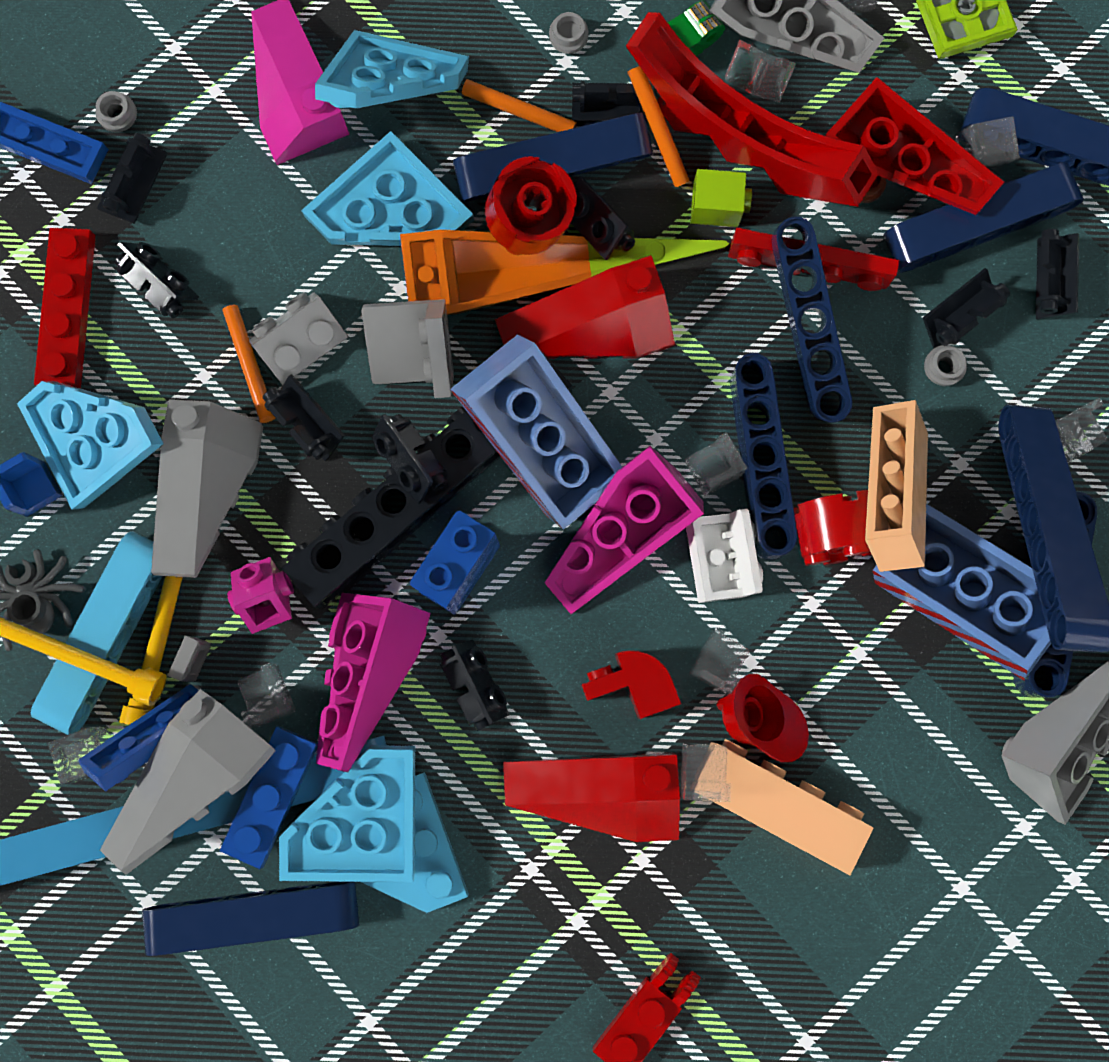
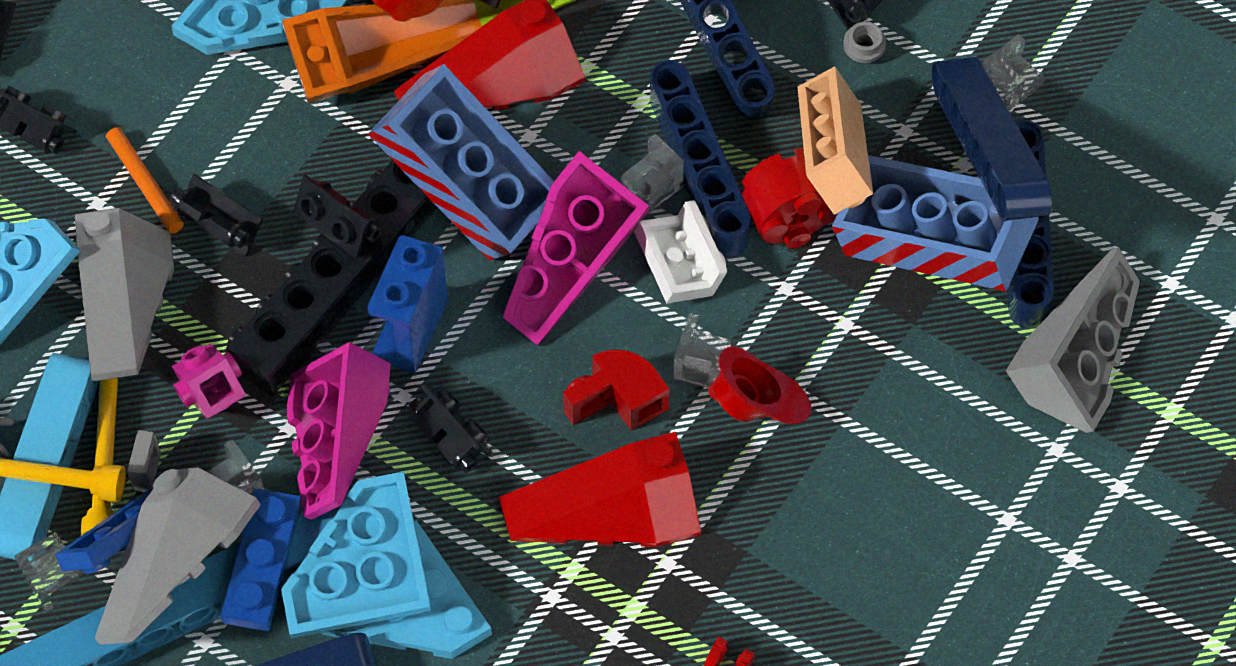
camera: 15 degrees left, 20 degrees down
(297, 336) = (193, 143): light grey bracket -> none
(409, 343) = (311, 122): light grey bracket -> none
(704, 773) = (707, 441): clear panel -> none
(794, 811) = (795, 472): light nougat brick -> none

